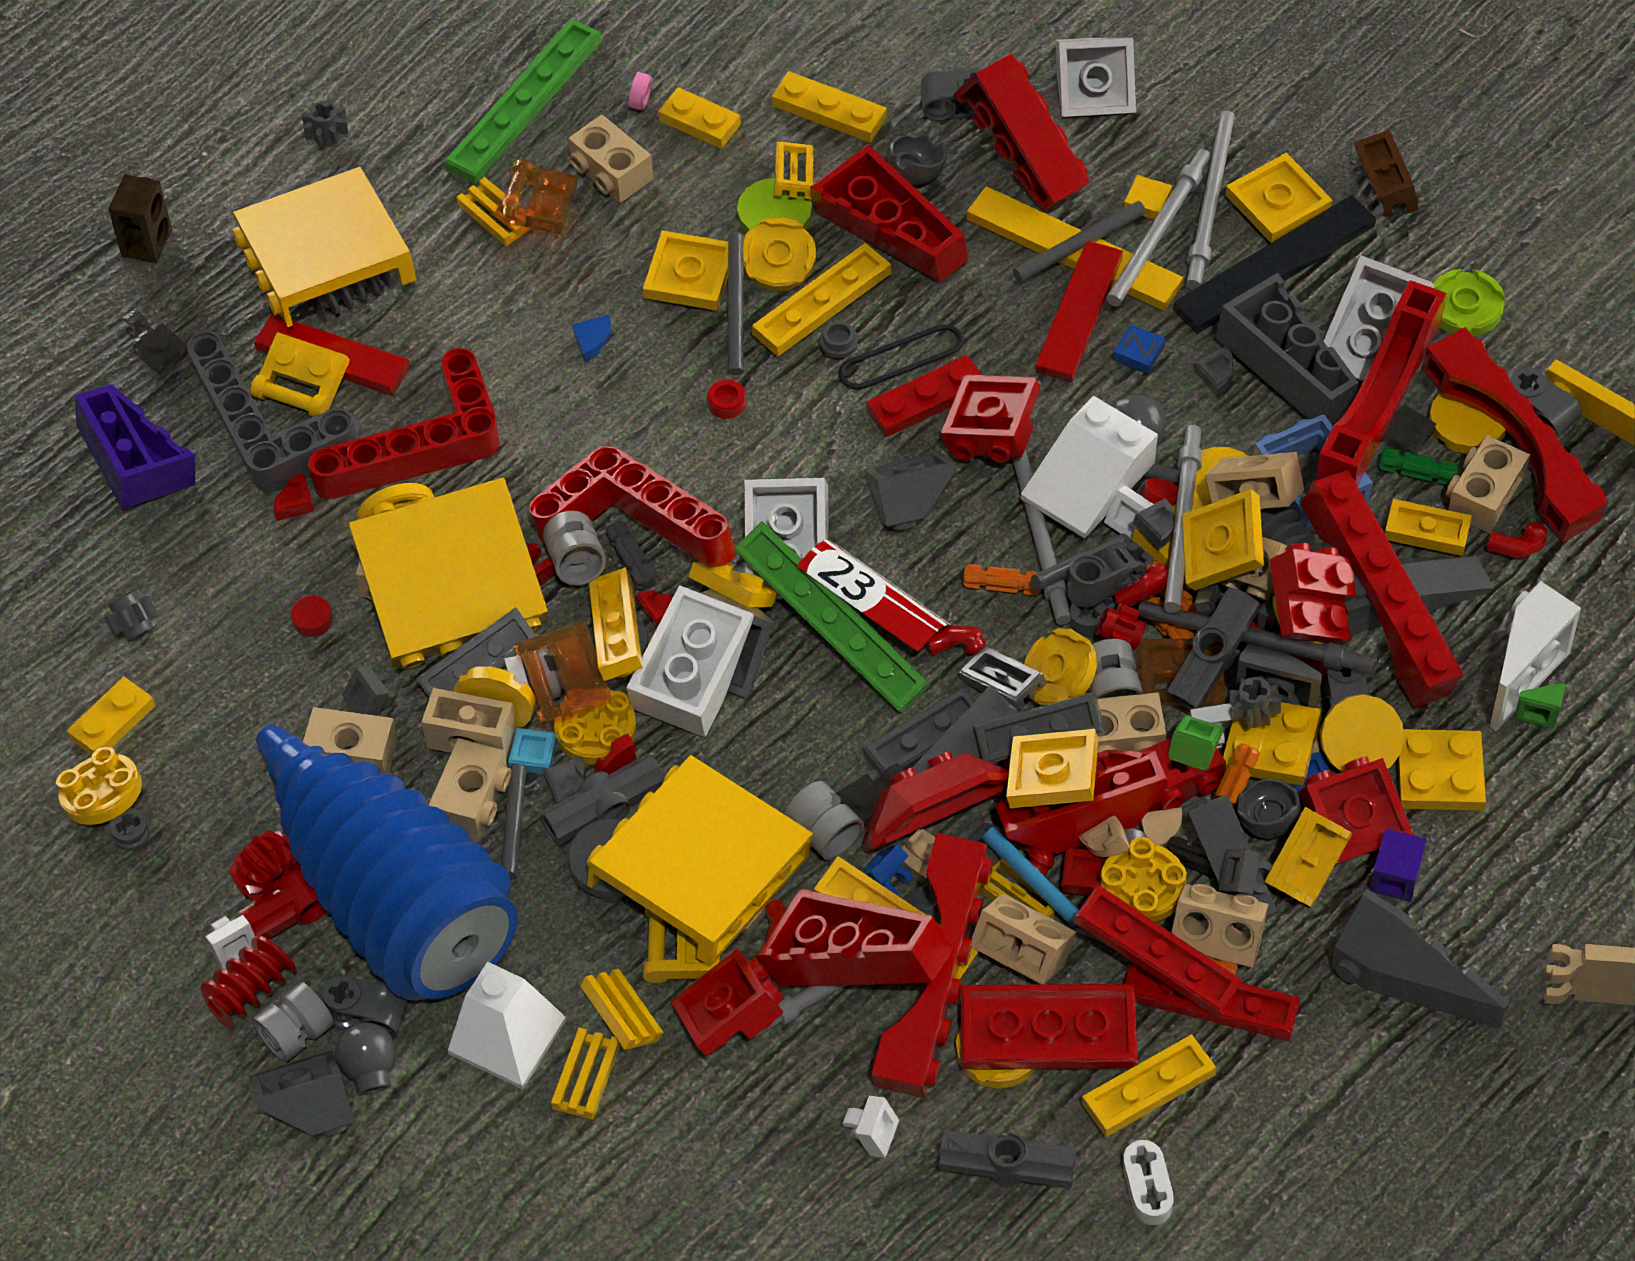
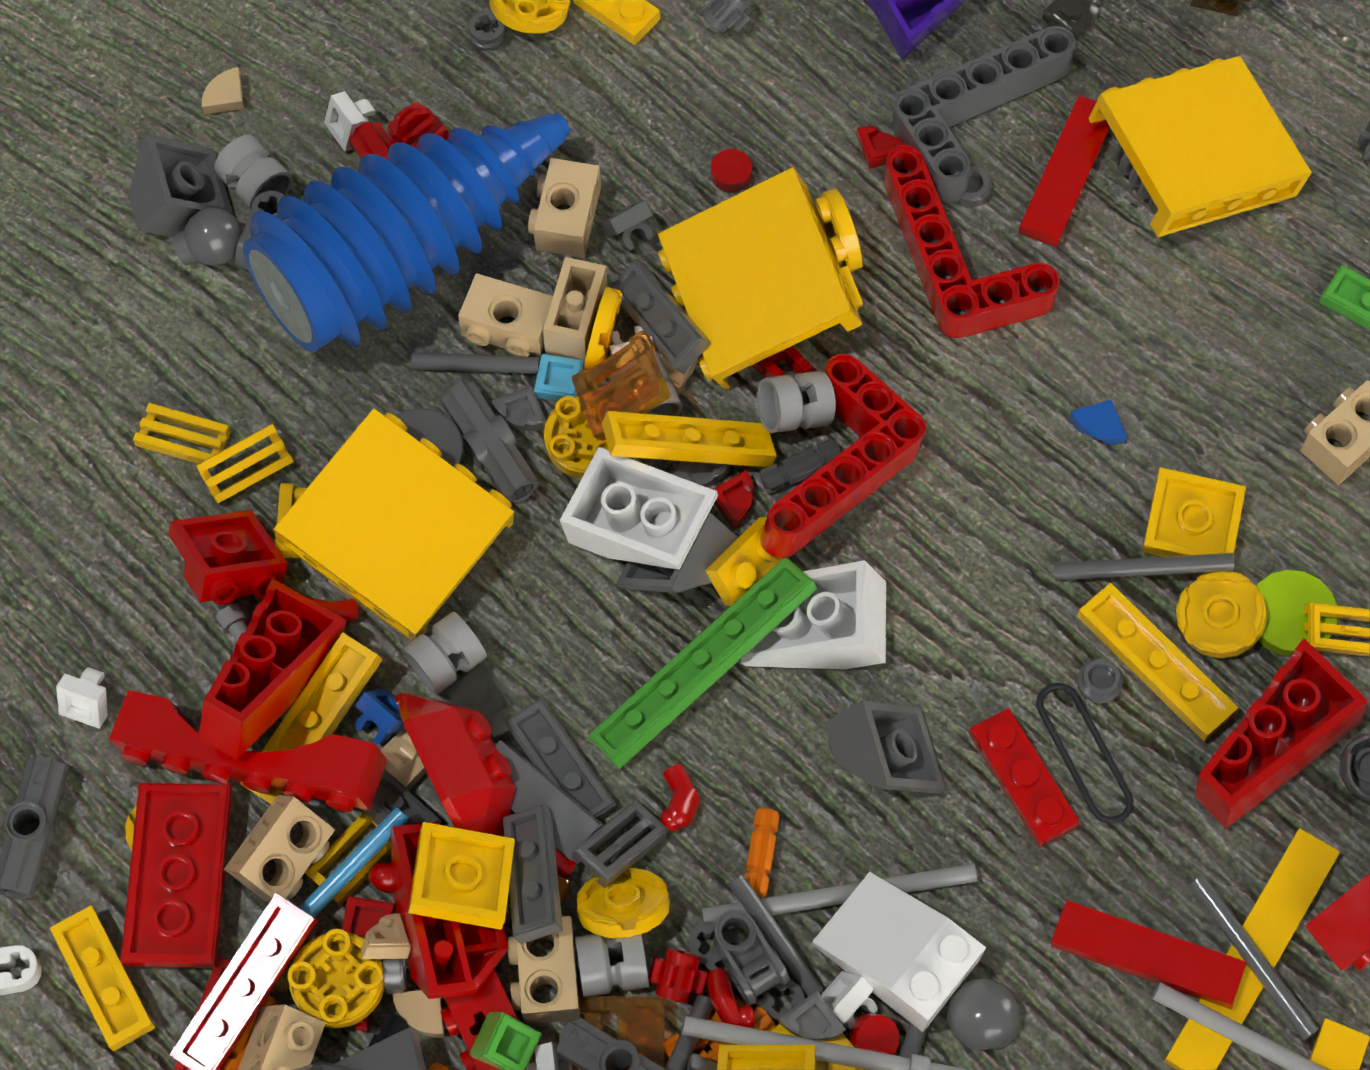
camera: 90 degrees right, 10 degrees up
(182, 1068) = (223, 93): none -> tan tile
(244, 978) = (302, 133): red piece -> none
(303, 364) = (1044, 144): yellow plate -> none
(494, 194) = (1296, 298): yellow tile -> none
(505, 1026) = (238, 362): white slope -> none
(548, 202) = (1286, 370): clear orange plate -> none
(620, 756) = (541, 456): red tile -> none
(726, 399) = (1016, 562): red tile -> none
(871, 594) = (729, 706): sticker -> none
(991, 417) = (975, 839): red plate -> none
(1139, 349) = (1098, 1026): blue tile -> none

